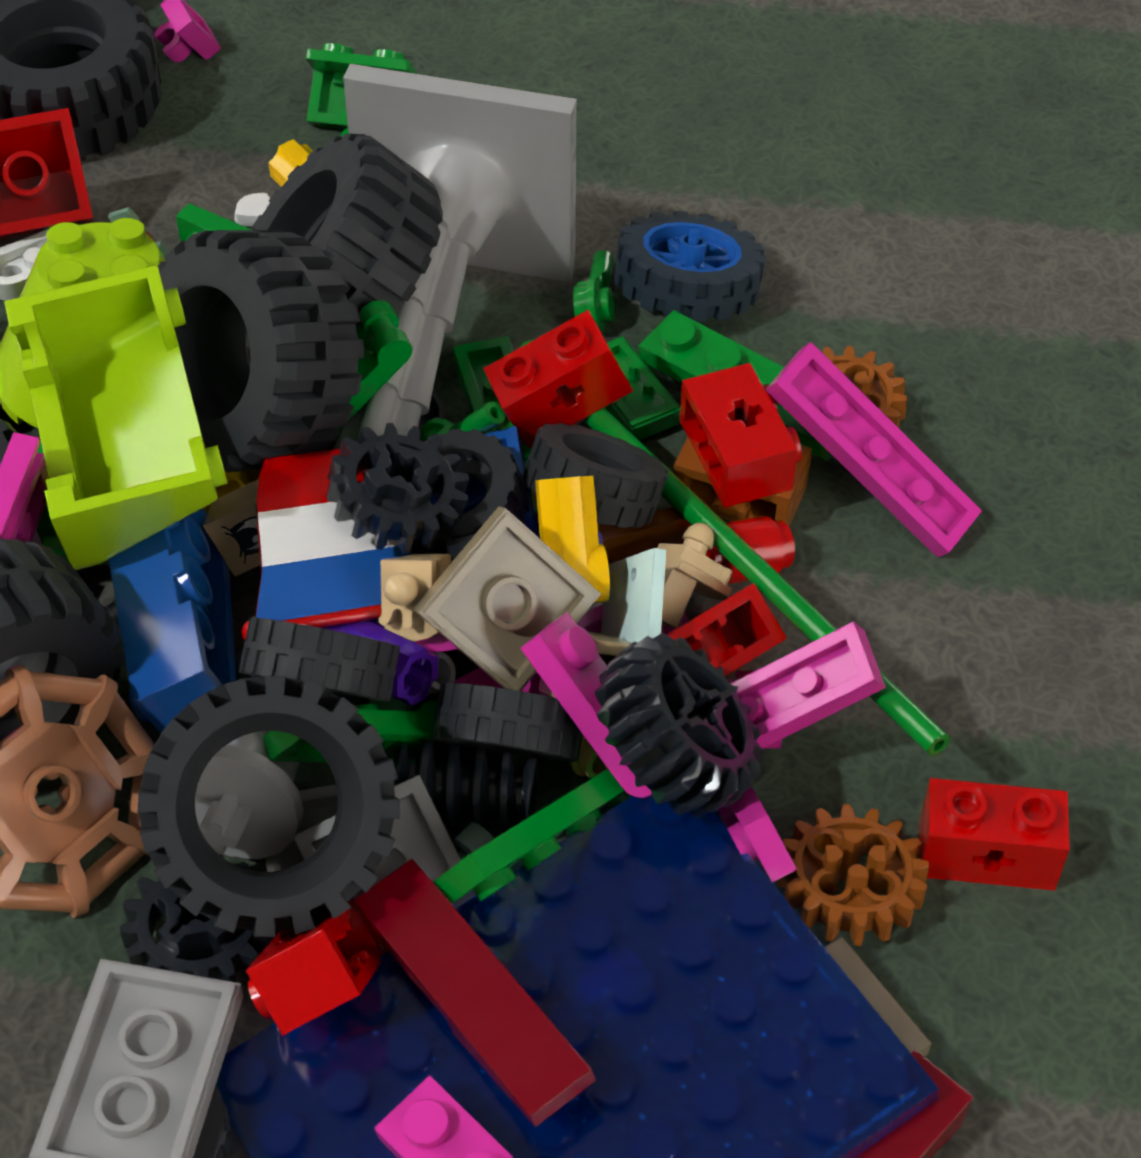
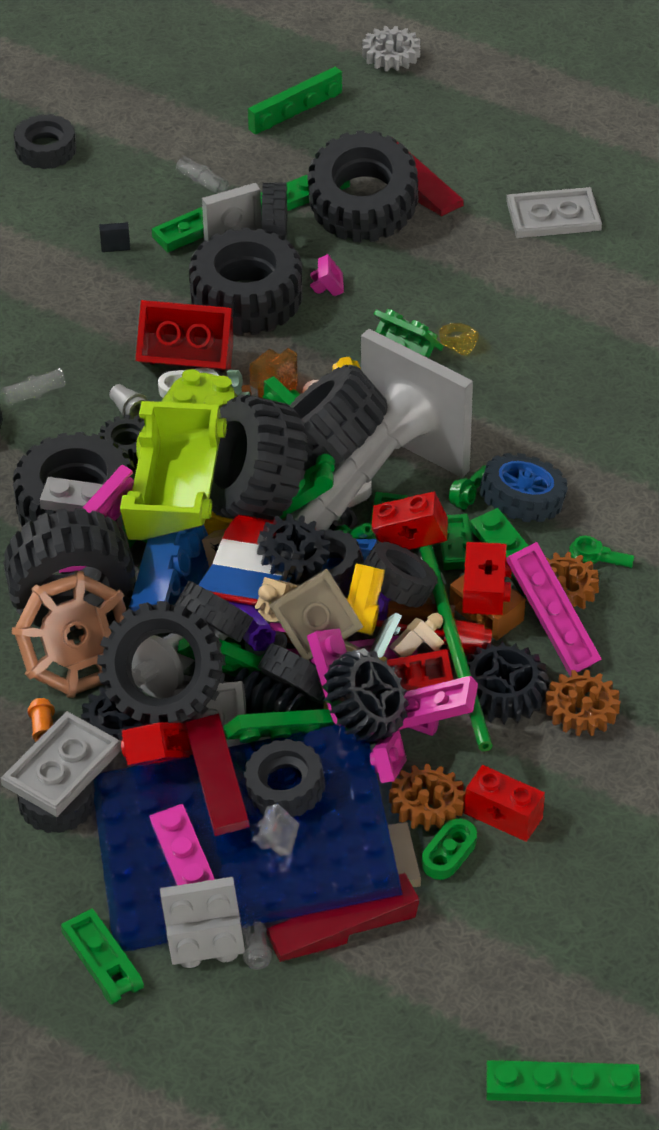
camera: 25 degrees right, 5 degrees down
(40, 974) = (41, 714): none -> orange pin
(170, 189) = (271, 364): none -> clear orange brick
(458, 64) = (460, 343): none -> clear yellow piece
(617, 1003) = (279, 756): none -> black tyre
(654, 1067) = (277, 830): none -> clear tile
(843, 329) = (594, 551): none -> green plate
(851, 585) = (508, 681): none -> black gear
(945, 966) = (447, 851): none -> green plate
(1032, 601) = (596, 709): none -> dark orange gear

